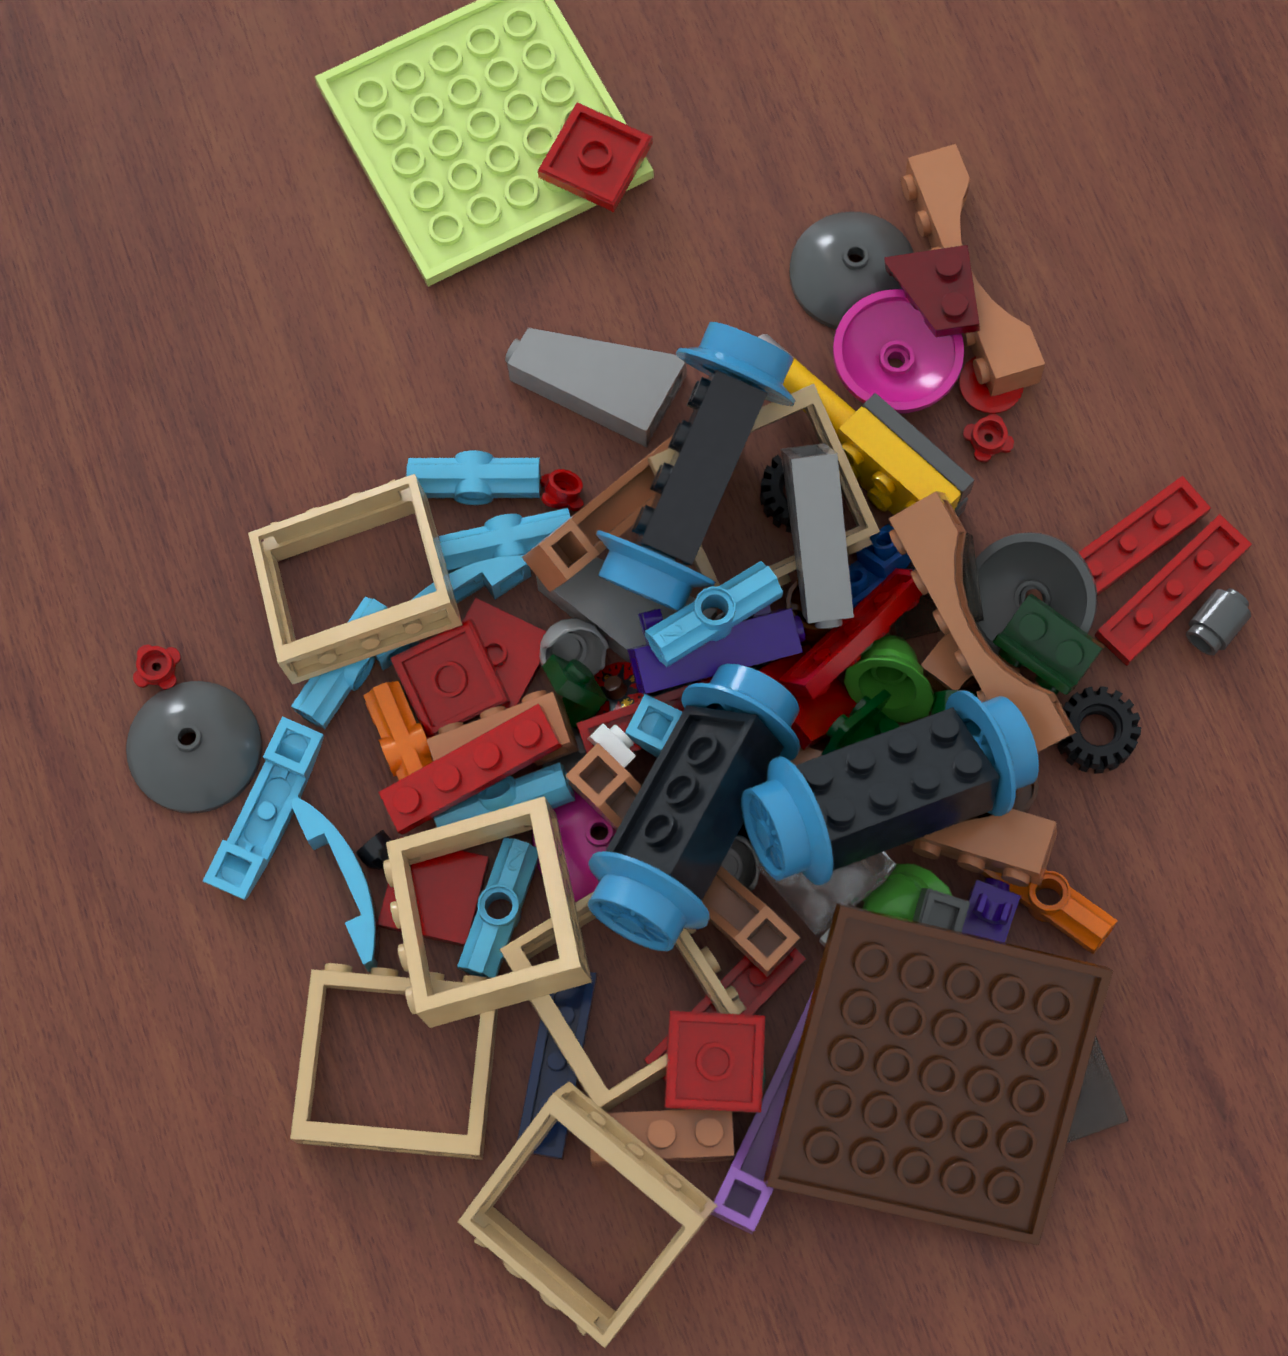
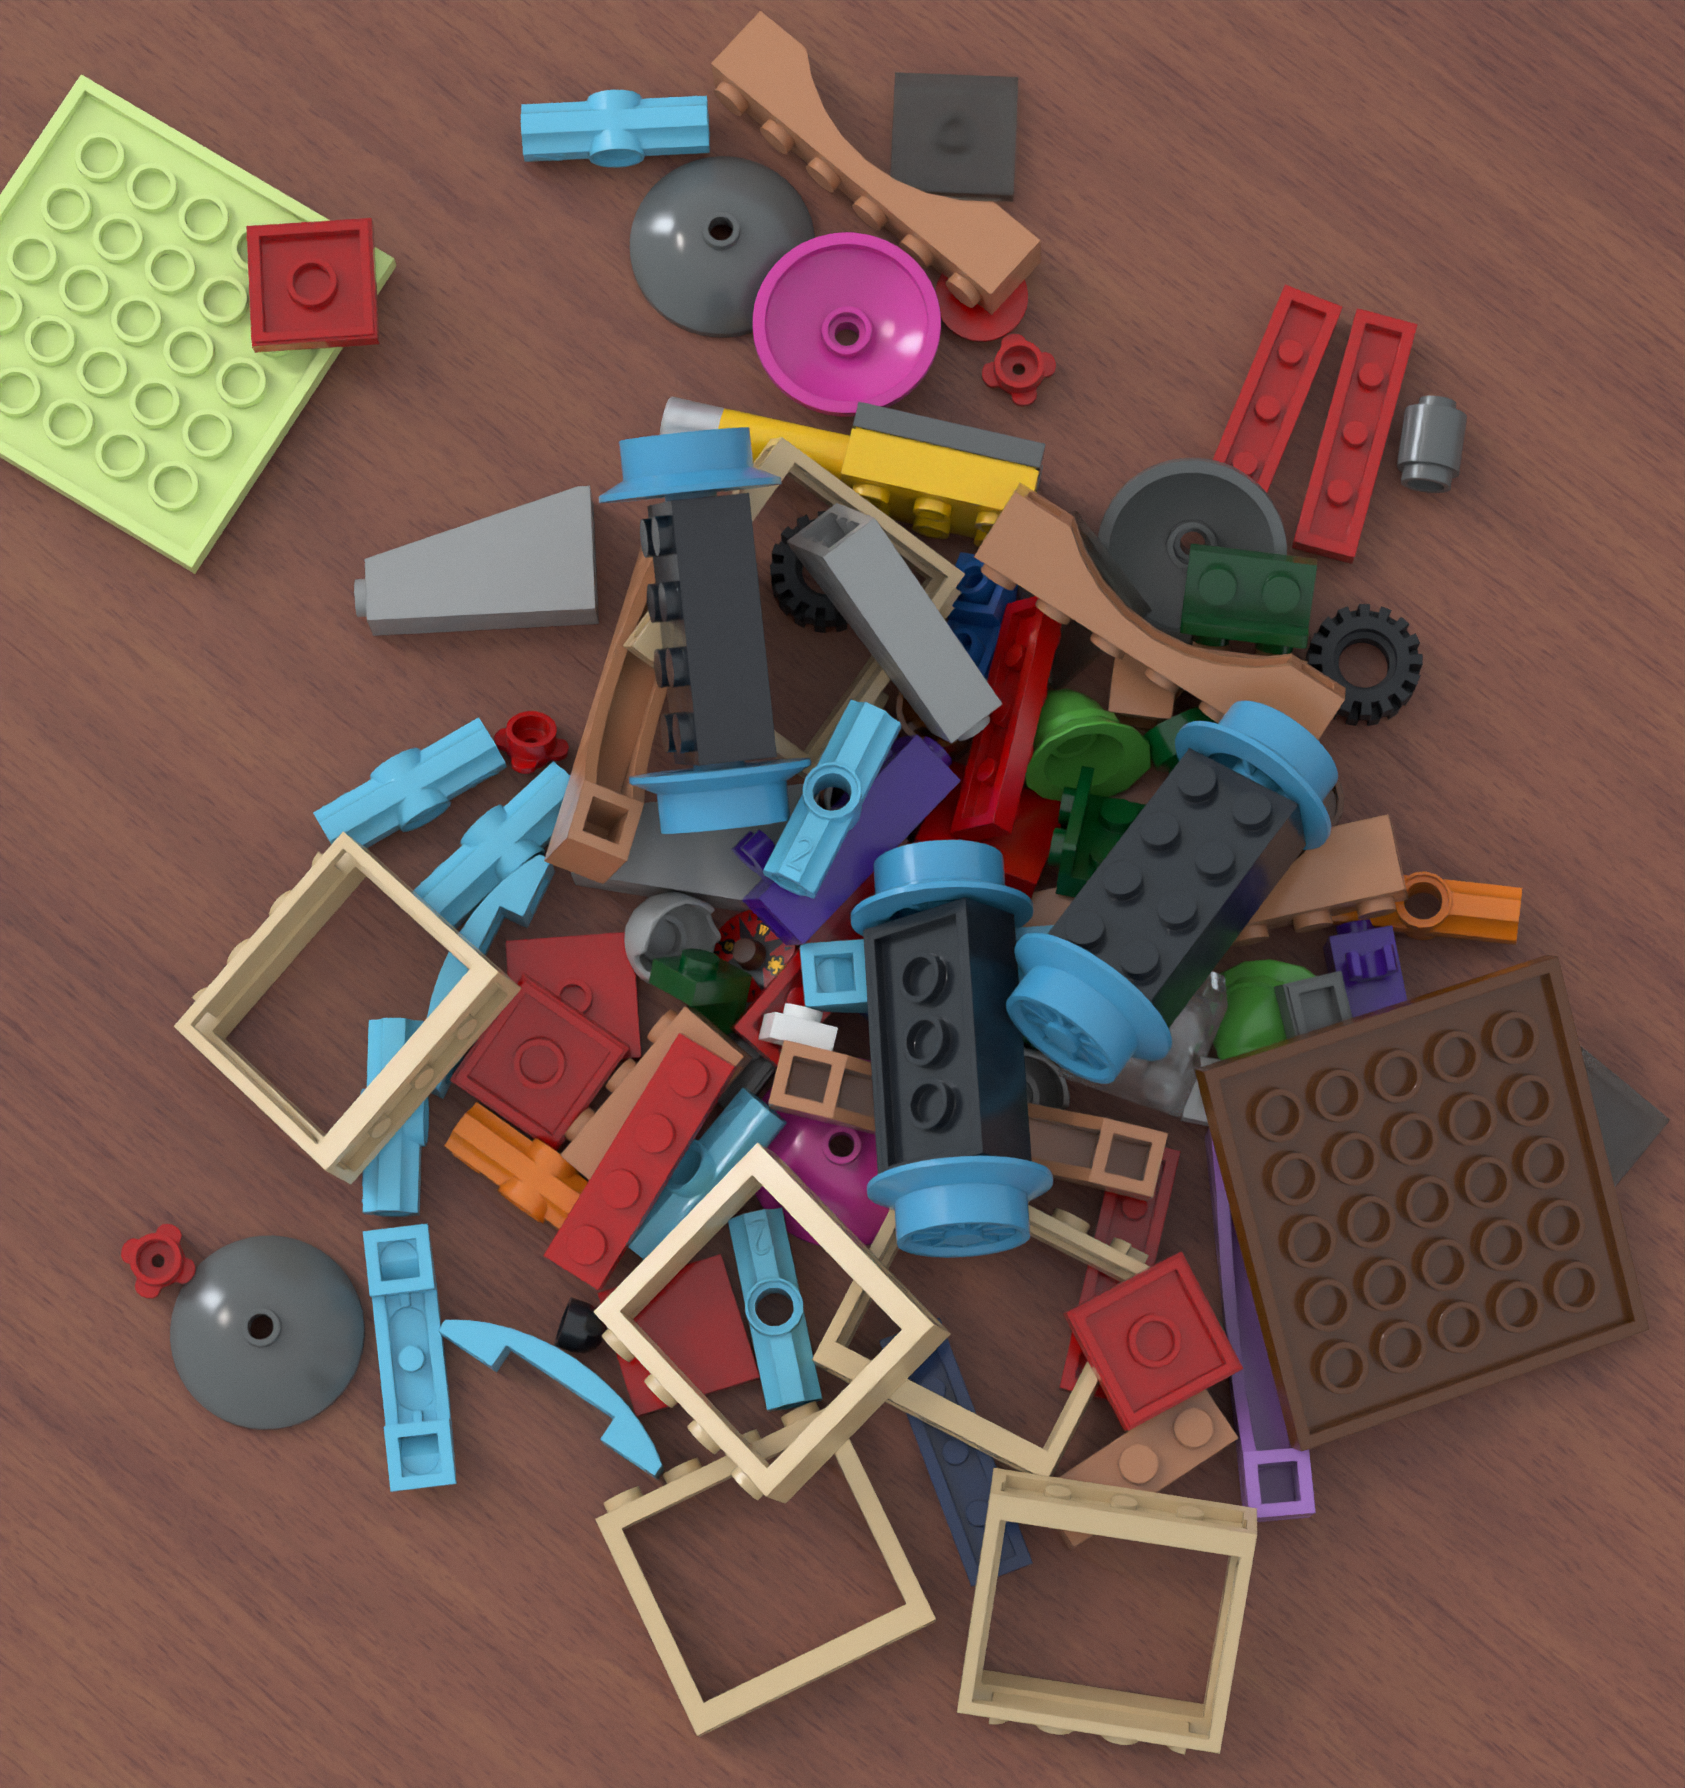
camera: 30 degrees left, 5 degrees up
(829, 168) = (615, 128): none -> medium azure piece
(939, 287) = (853, 216): dark red wing -> none
(1033, 280) = (955, 135): none -> clear smoke plate

